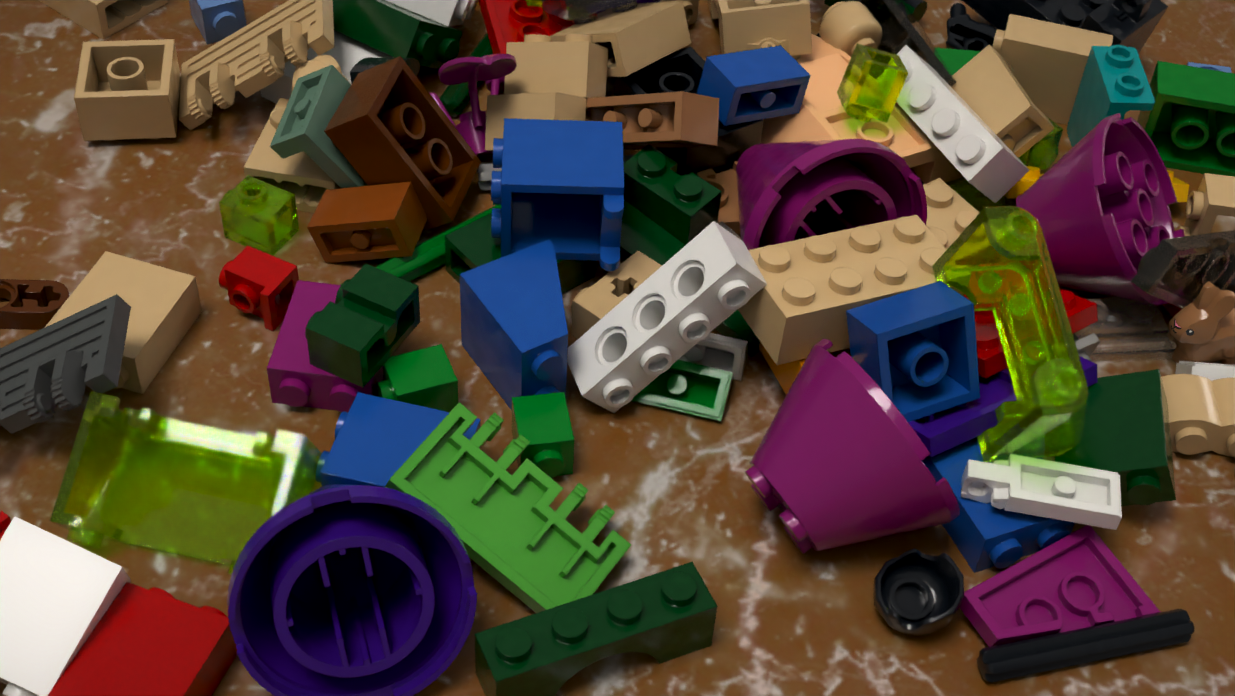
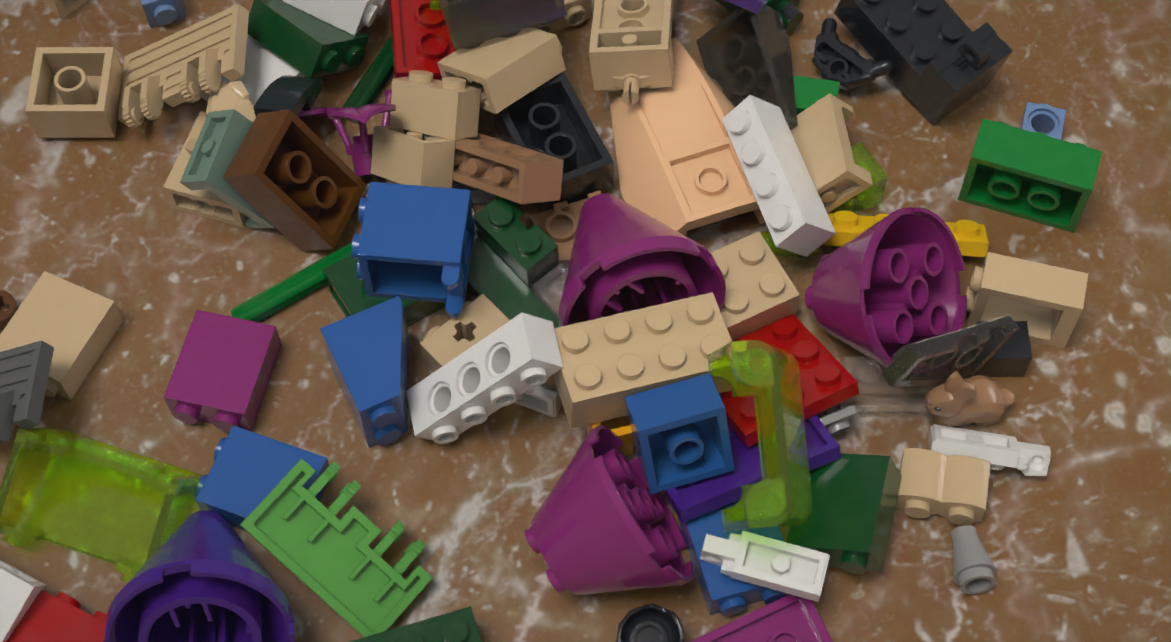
camera: 10 degrees right, 15 degrees up
(259, 215) = (174, 231): clear neon green brick -> none
(260, 284) = (168, 305): red brick -> none
(363, 325) = (241, 368): dark green brick -> none
(368, 222) = (262, 248): dark orange panel -> none
(420, 379) = (286, 414): green brick -> none
(548, 427) = (379, 469): green brick -> none
(690, 390) = (512, 429): green slope -> none
(754, 84) = (605, 130): blue brick -> none
(850, 24) = (717, 55): tan head -> none
(871, 84) = (709, 138): clear neon green brick -> none
(1048, 61) = (892, 106): tan brick -> none
(1109, 86) = (932, 158): teal panel -> none

